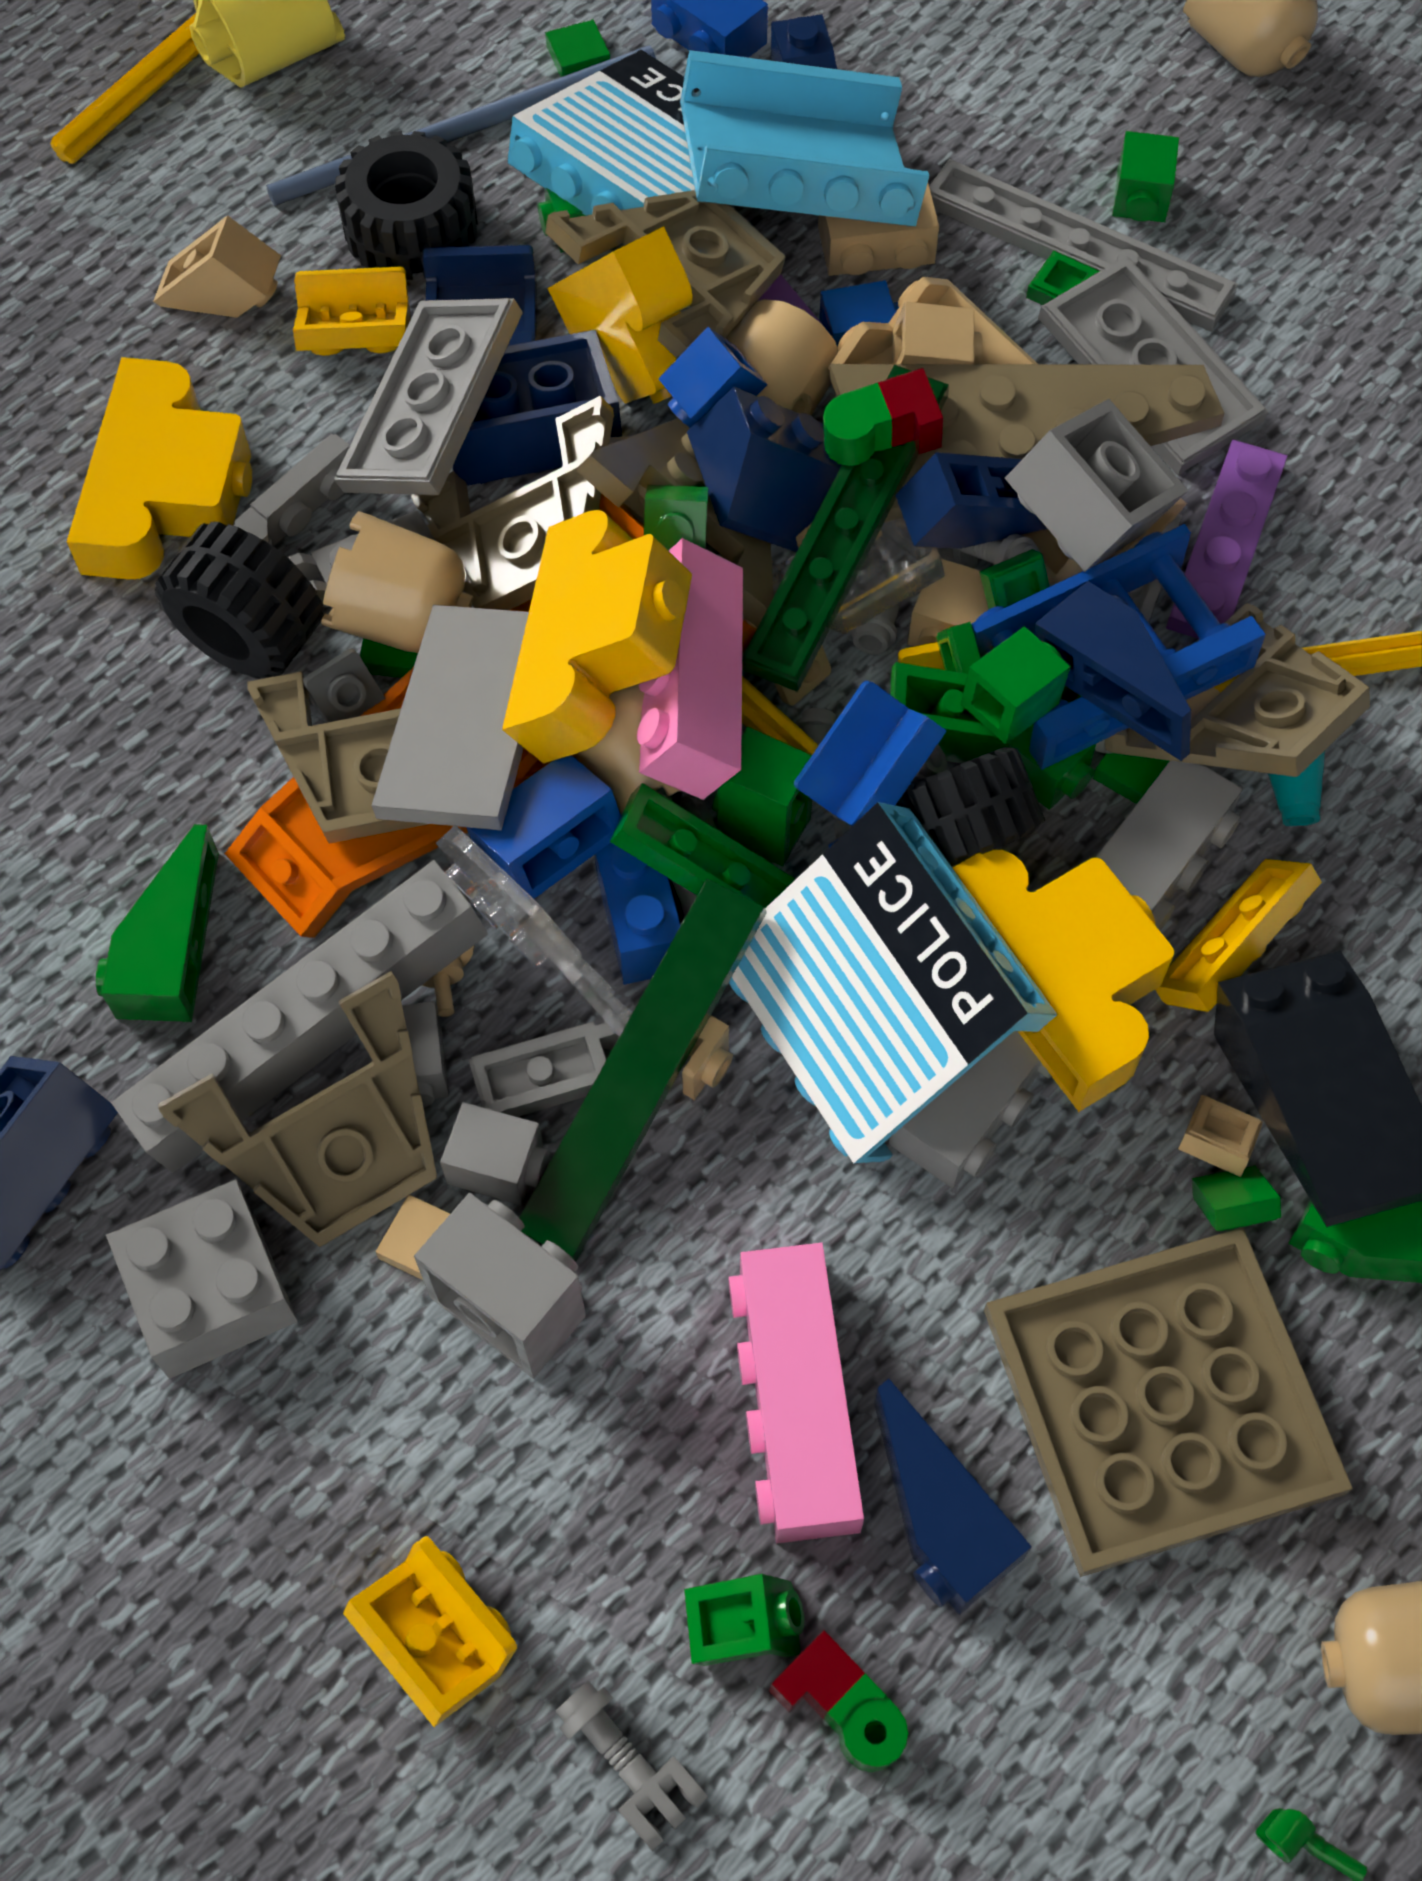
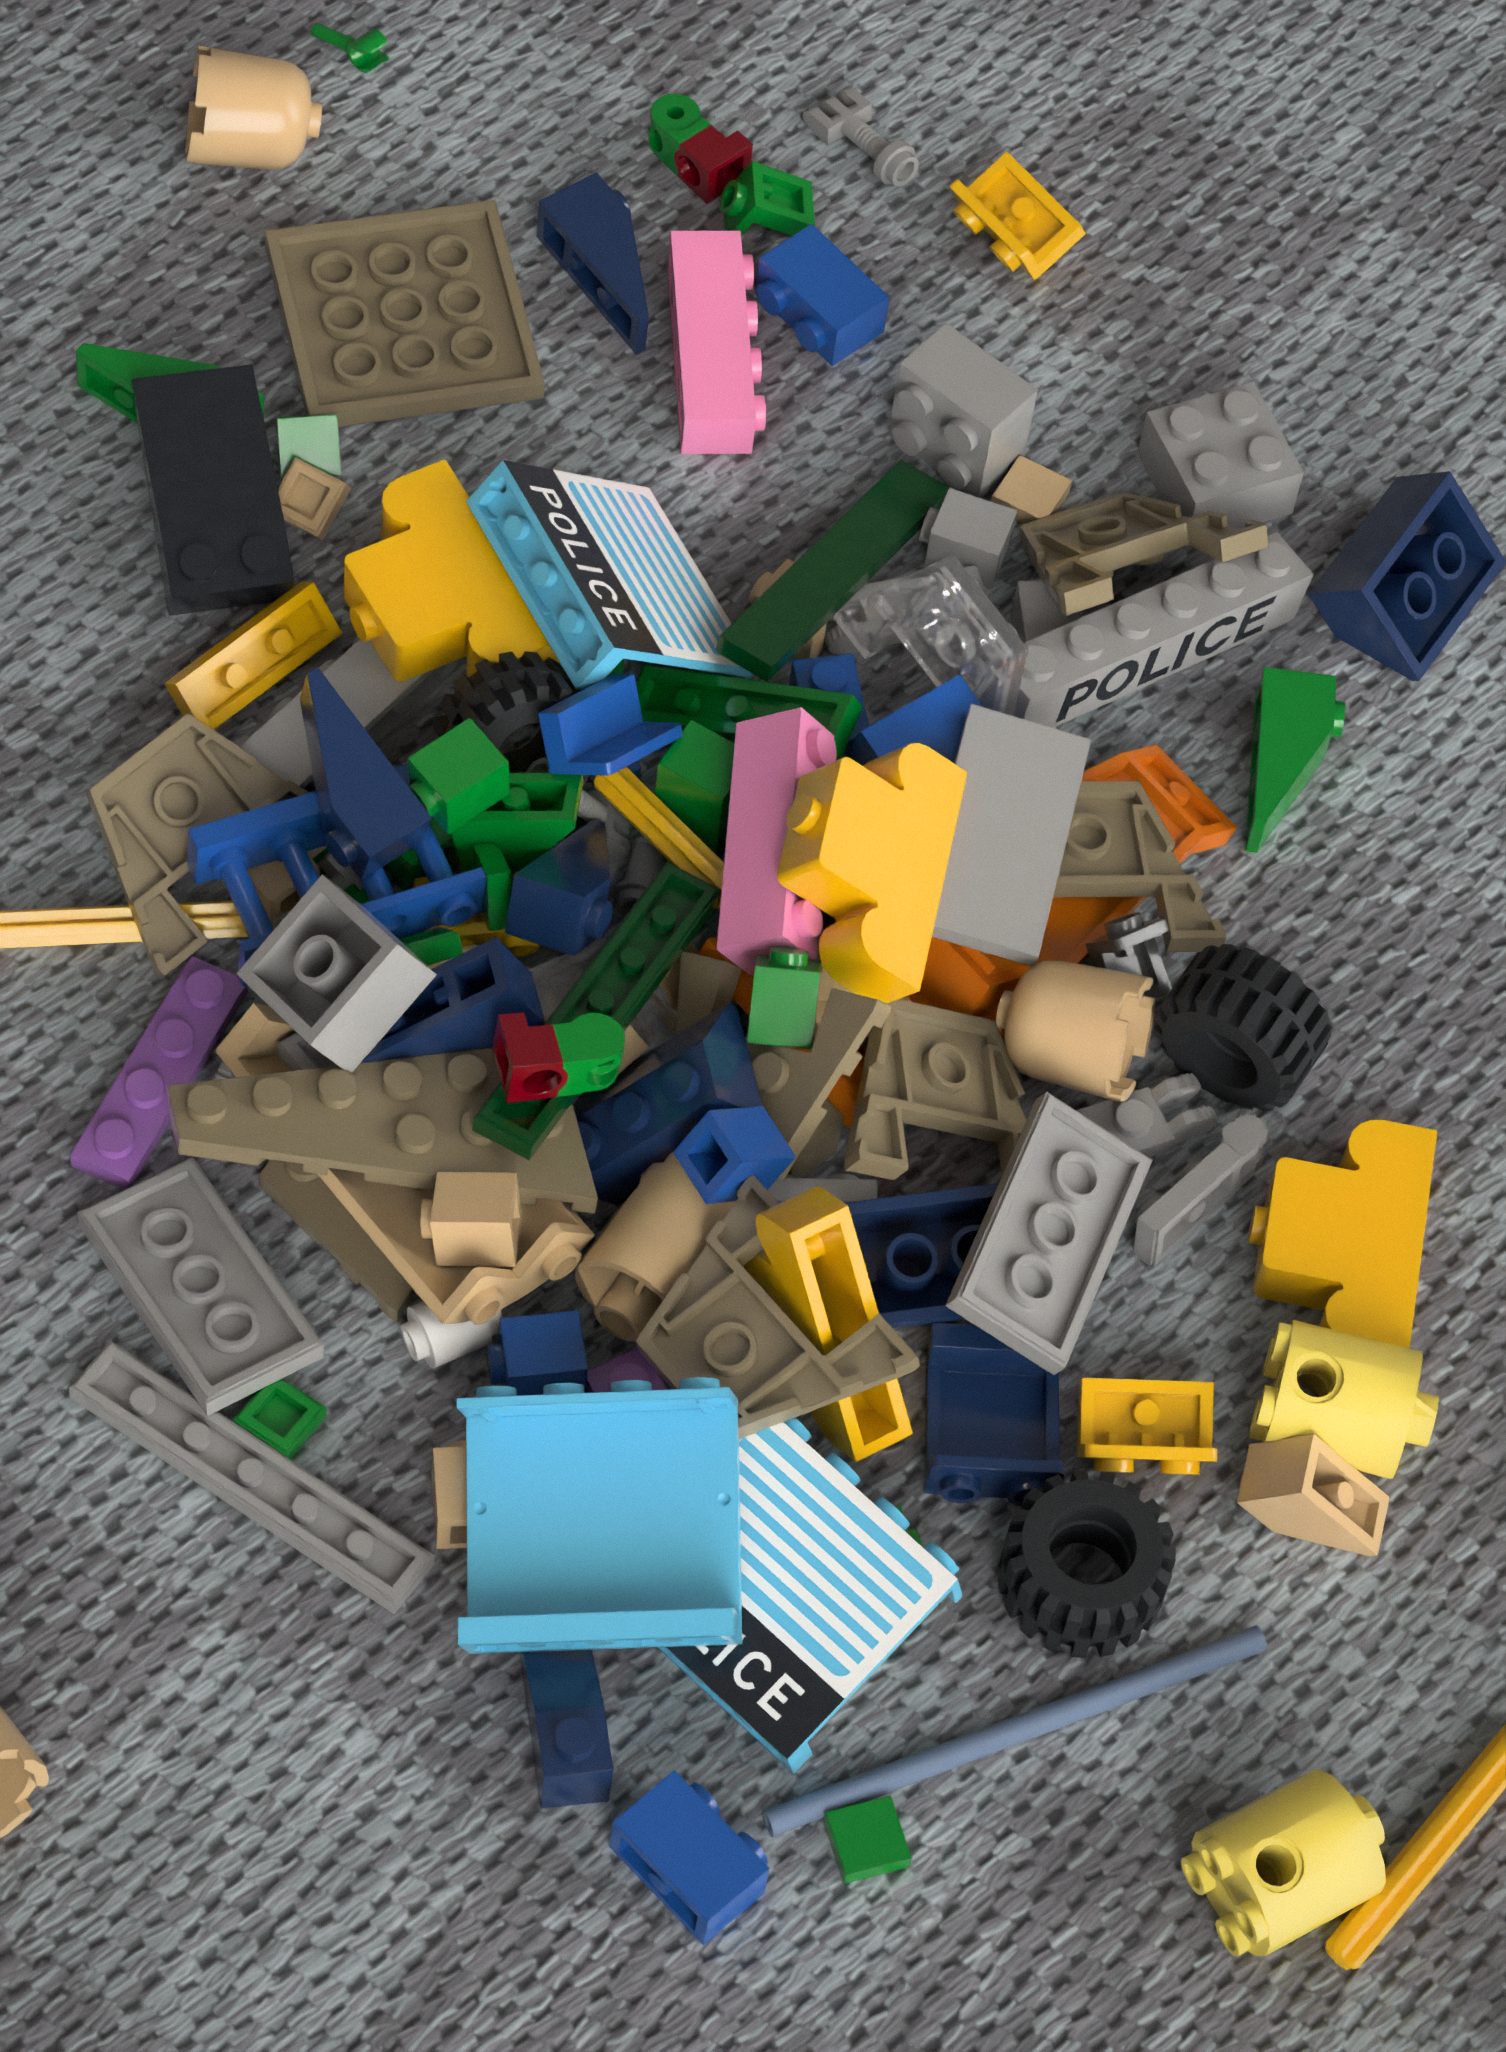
camera: 175 degrees right, 5 degrees down
(185, 316) = (1364, 1400): none -> light yellow cylinder
(673, 1473) = (821, 295): none -> blue brick
(889, 627) = (564, 893): none -> dark blue slope
(1145, 176) = (152, 1538): green brick -> none

